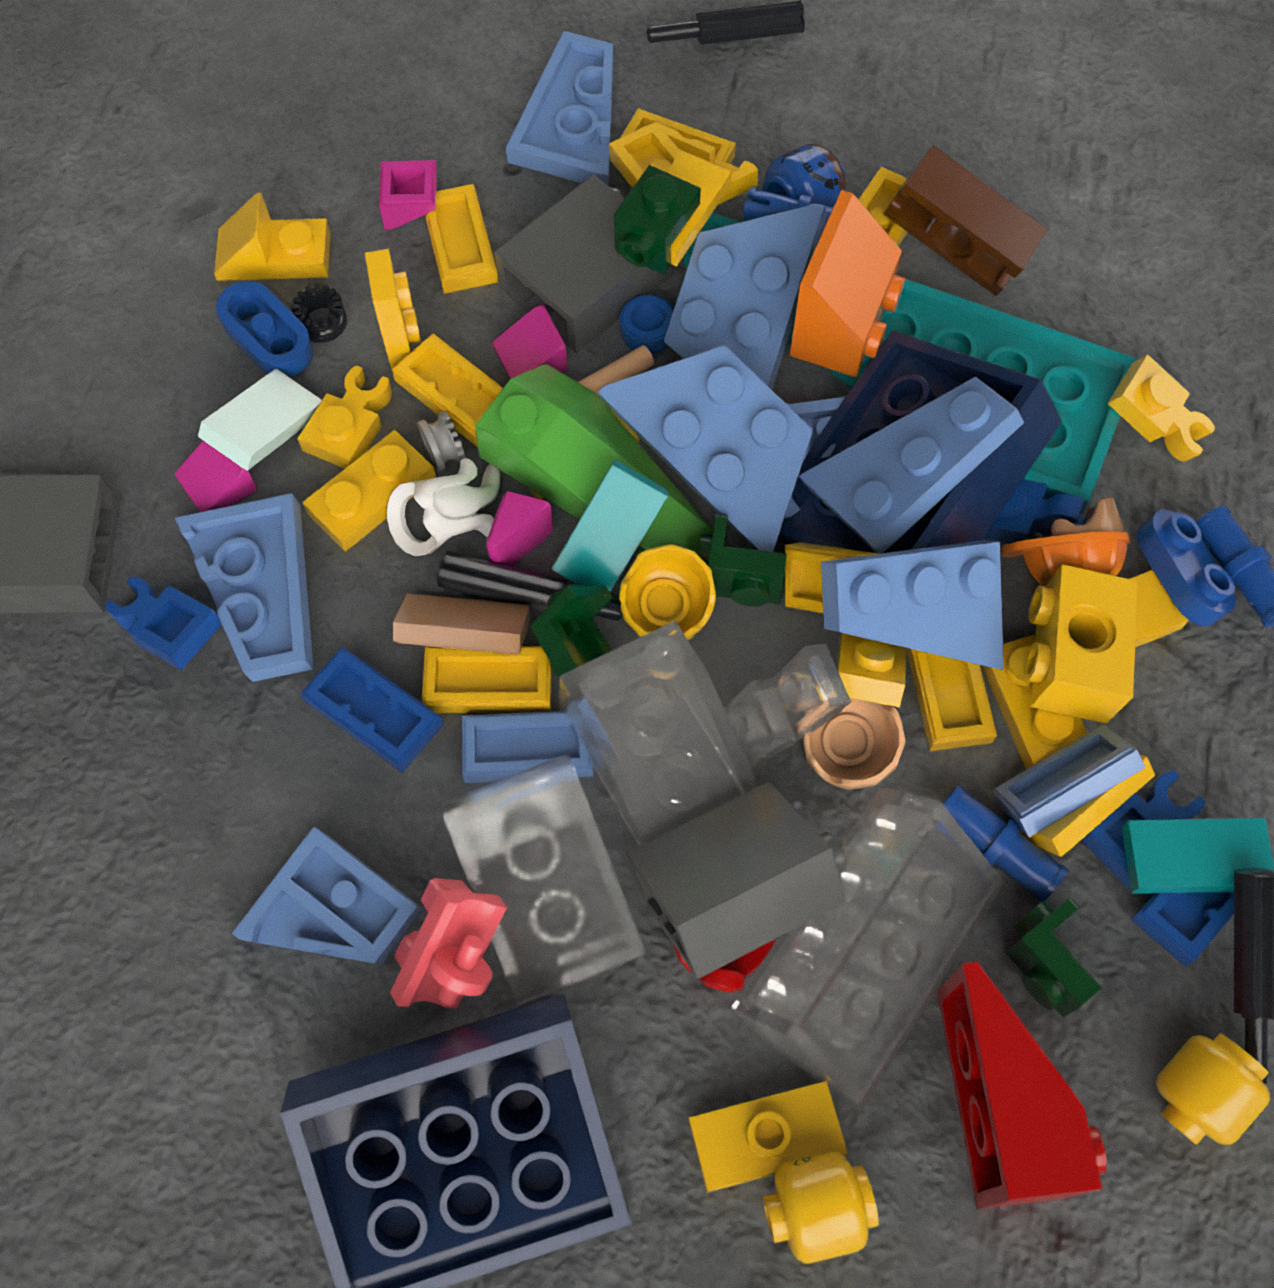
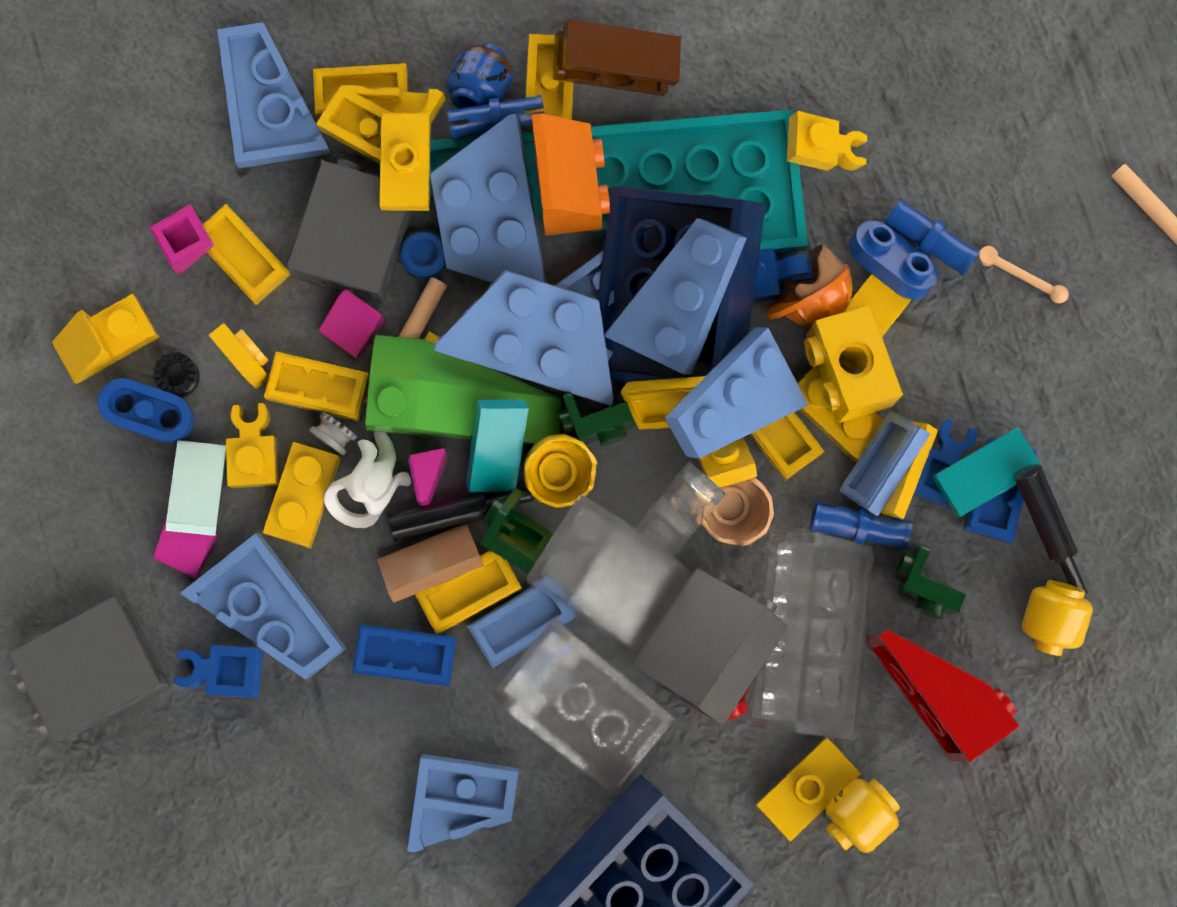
camera: 30 degrees left, 15 degrees up
(447, 952) = (558, 789): coral hips -> none
(653, 218) = (397, 188): dark green bracket -> none

